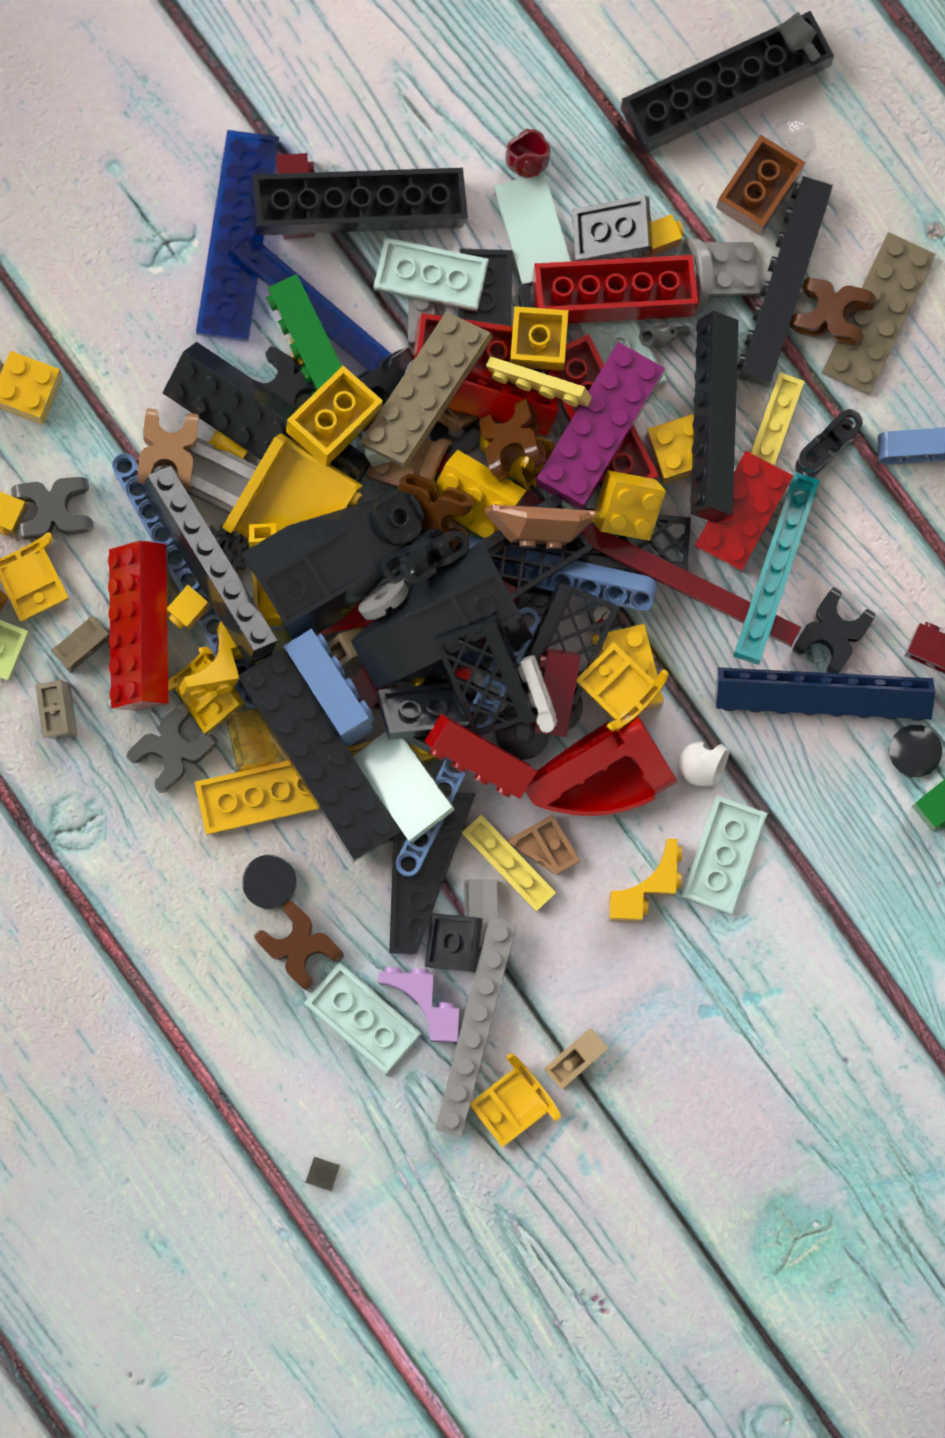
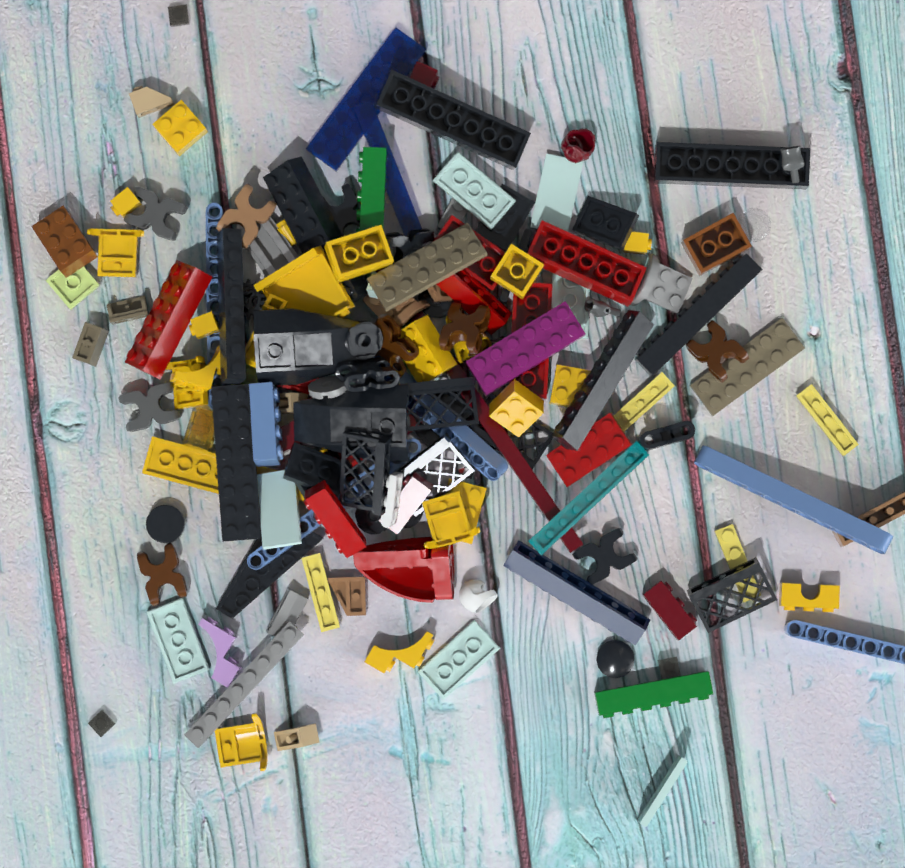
camera: 30 degrees right, 5 degrees up
(453, 942) = (258, 624): black tile -> none
(539, 525) = (451, 393): nougat wedge -> none
(546, 385) = (504, 305): light yellow plate -> none

